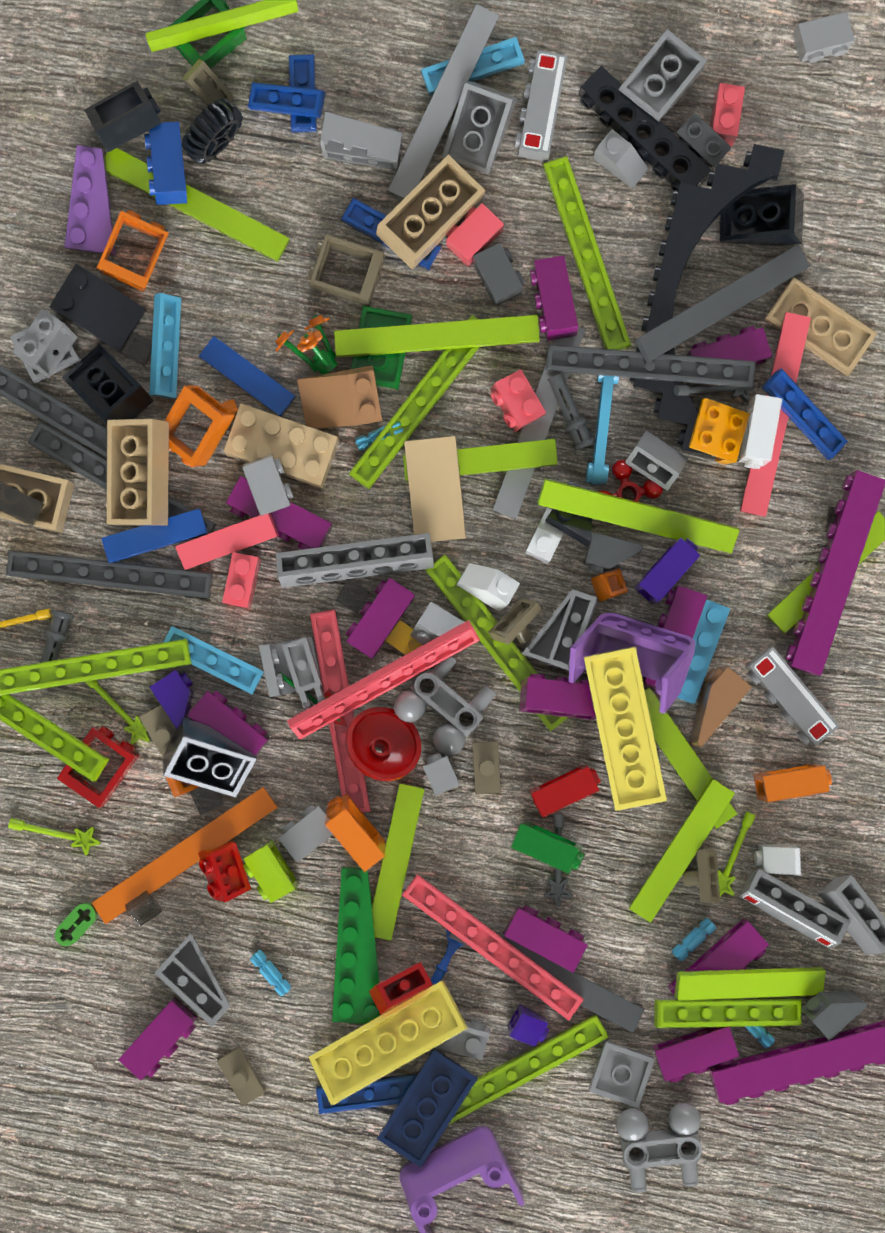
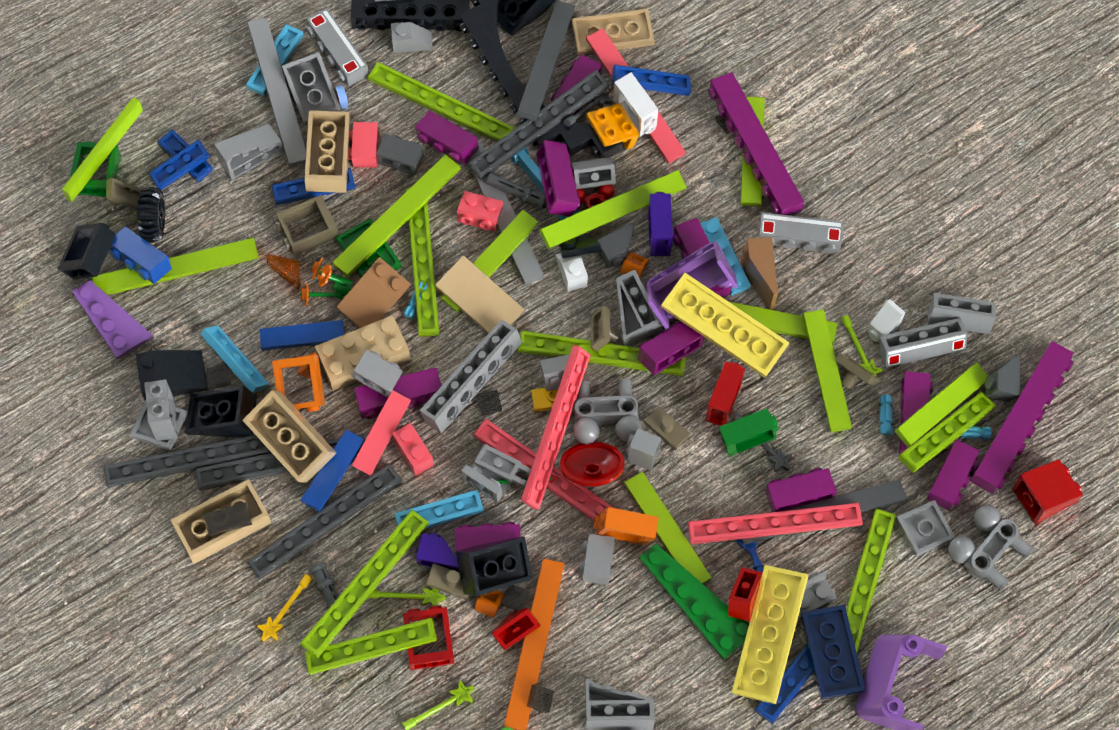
camera: 40 degrees left, 20 degrees down
(121, 274) = (167, 339): orange window -> none
(179, 826) = (515, 627): none -> red slope
(224, 872) = (569, 629): red bracket -> none
(270, 973) = (657, 666): medium azure axle -> none
(271, 872) = (598, 600): lime slope -> none
(293, 298) = (286, 268): none -> clear orange slope
(379, 617) = (518, 398): magenta brick -> none
(488, 585) = (565, 322): white slope -> none
(499, 163) = (341, 96): none -> light blue tile
(527, 1026) = (842, 548): dark purple slope -> none
(615, 438) = (557, 178): none -> magenta brick
(763, 1147) = (1047, 490): none -> red slope
(792, 782) = (848, 274): orange window -> none

